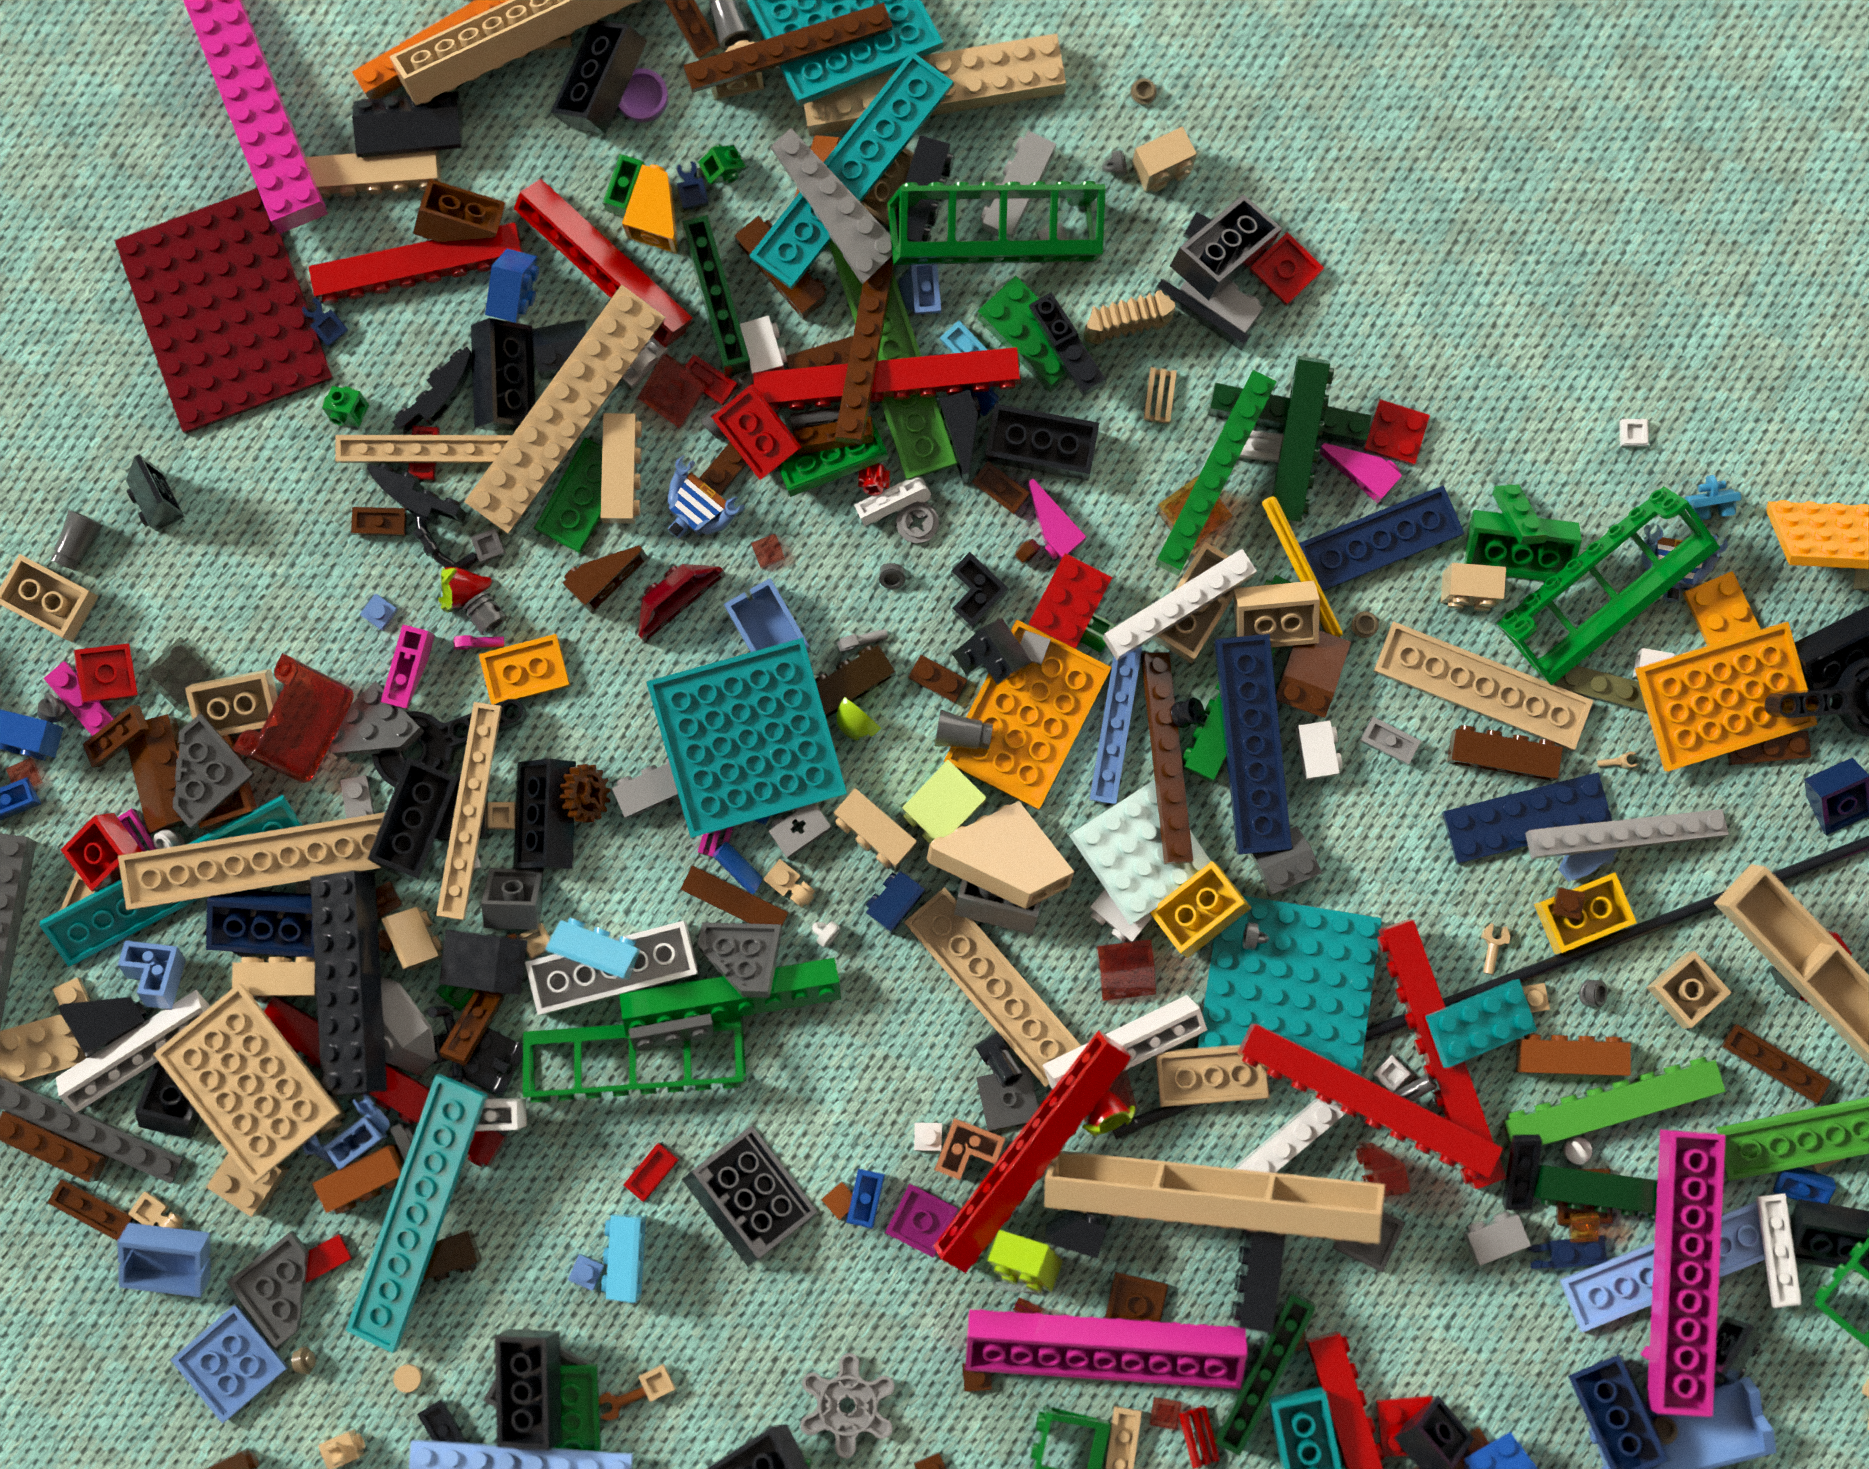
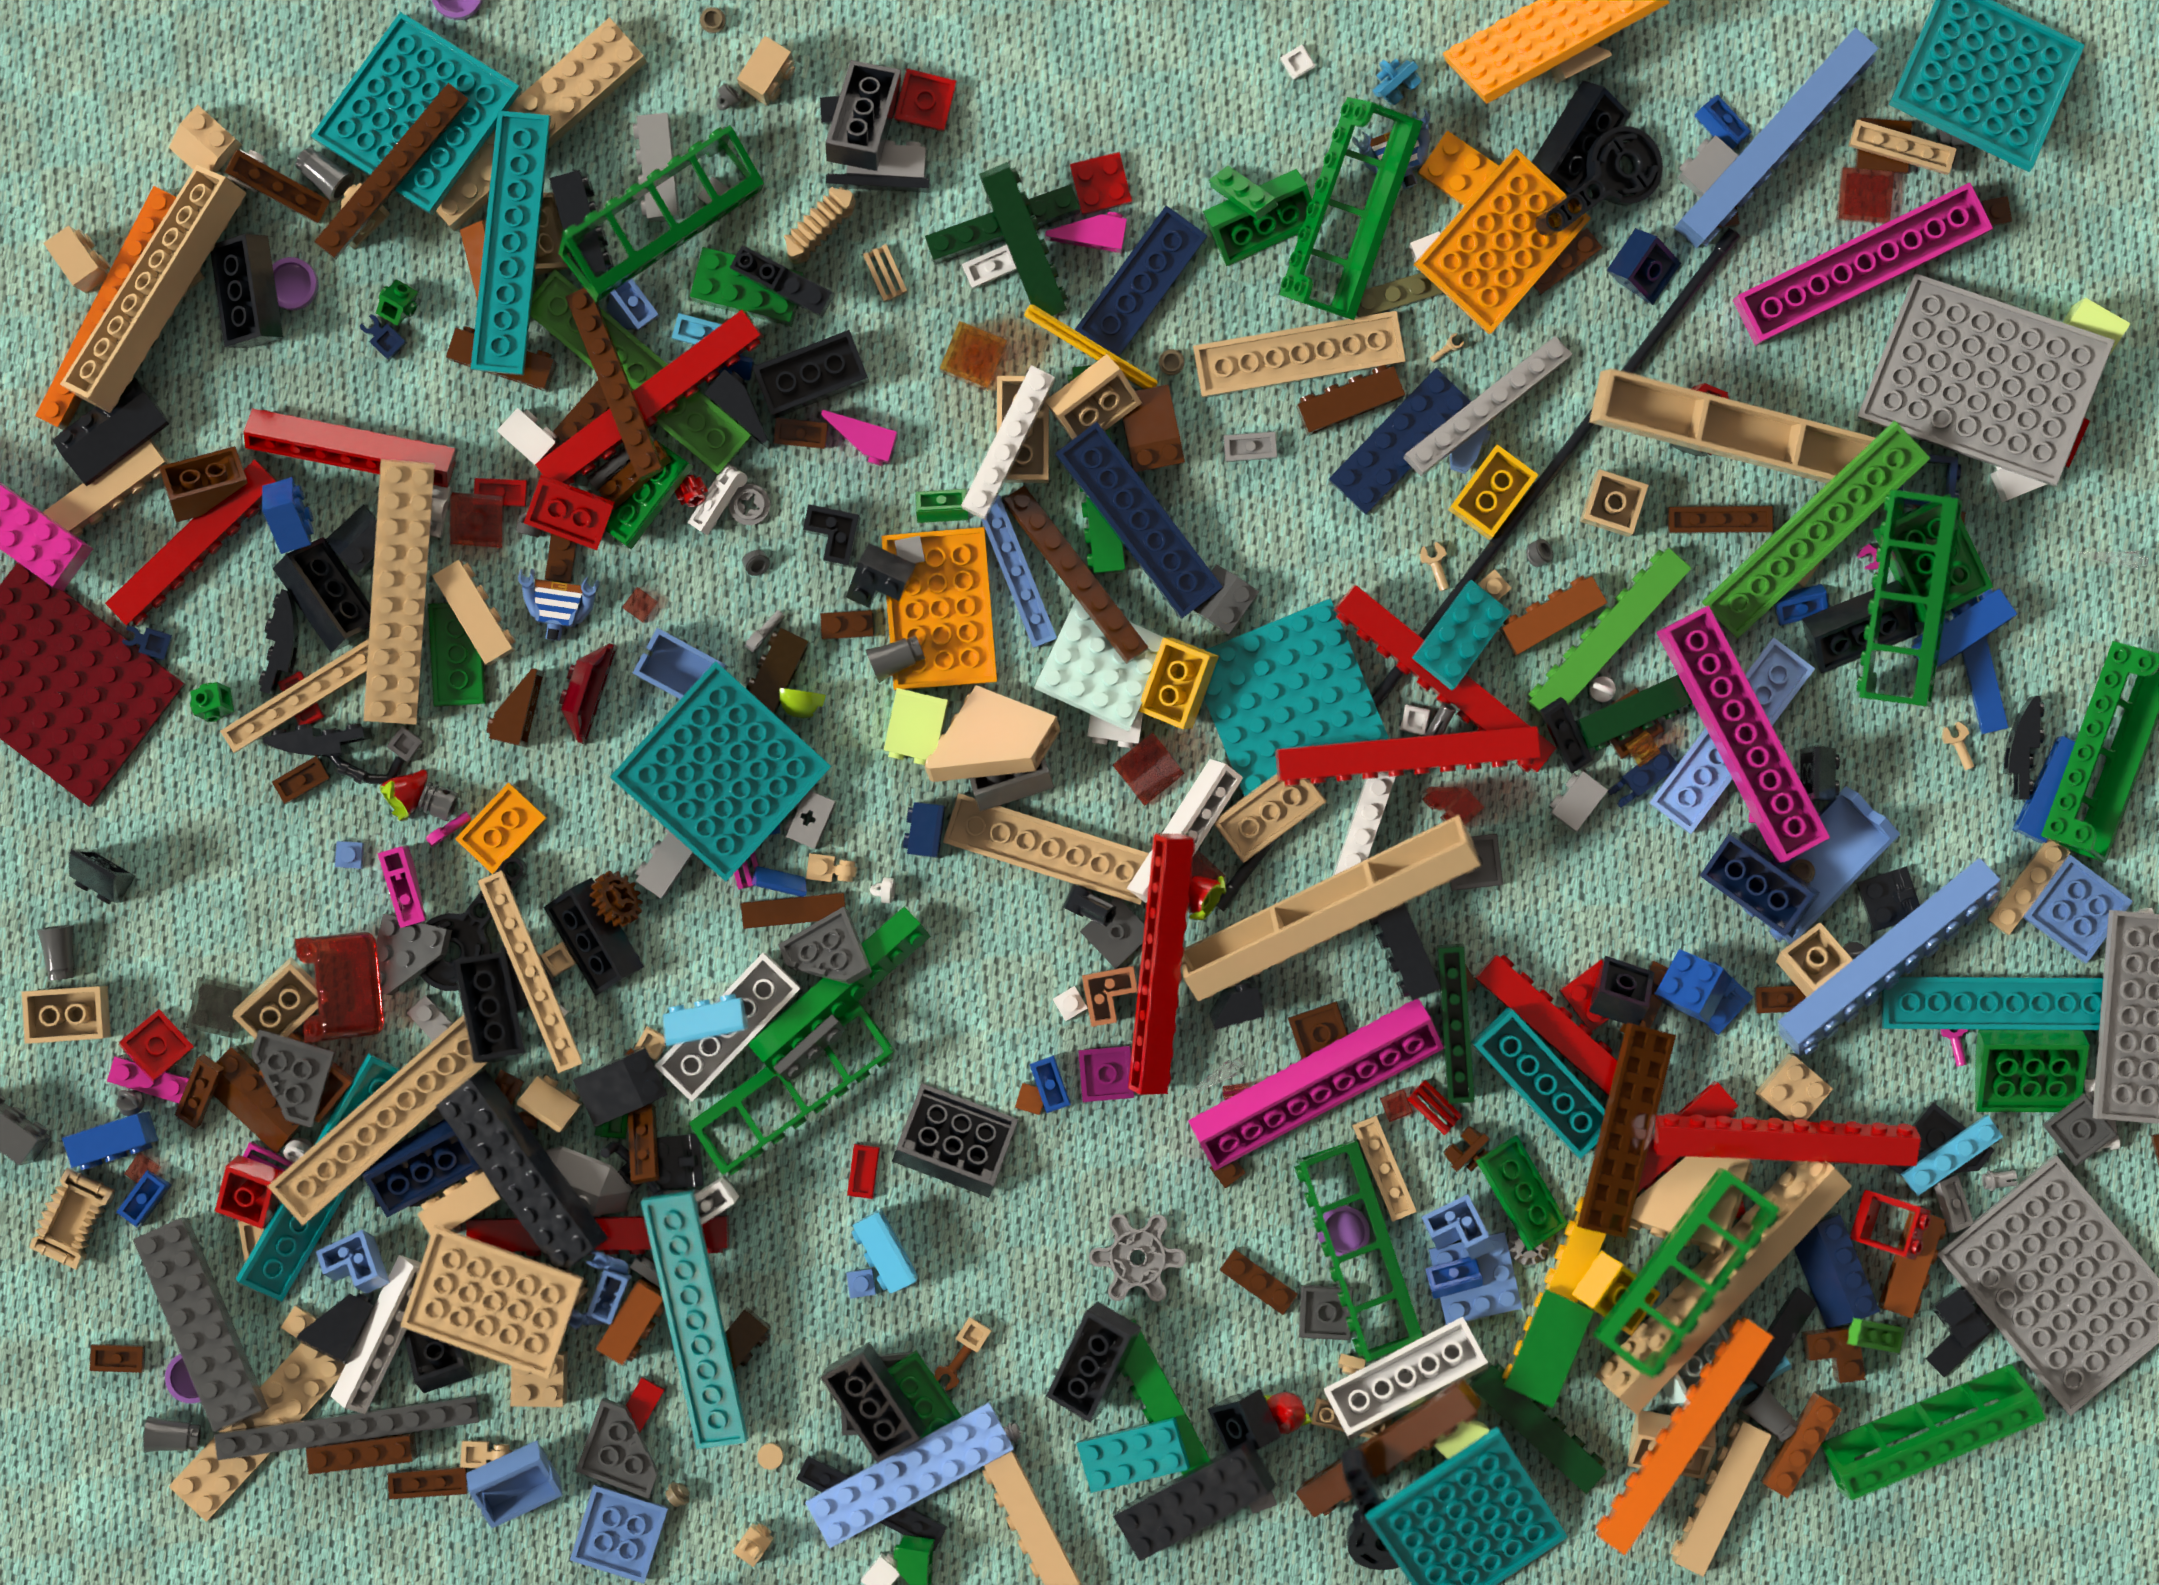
camera: 30 degrees left, 5 degrees up
(512, 899) = (611, 1021): dark grey slope -> none
(622, 185) = (327, 371): green brick -> none
(651, 210) = (363, 378): light orange slope -> none
(716, 296) = (463, 418): dark green brick -> none
(848, 222) = (534, 289): light grey wing -> none
(874, 830) = (872, 782): tan brick -> none
(1025, 1262) = (1209, 1054): lime brick -> none
(1027, 551) = (855, 472): reddish brown tile -> none
(1070, 600) = (916, 493): red plate -> none
(1188, 712) = (1070, 526): black wheel -> none
(1215, 473) = (971, 313): green brick -> none
(1252, 936) = (1234, 678): dark grey tile -> none
(1318, 750) = (1195, 491): white brick -> none
(1473, 586) = (1240, 276): tan brick -> none
(1568, 903) = (1473, 493): reddish brown plate -> none
(1778, 1250) = (1809, 670): white tile -> none

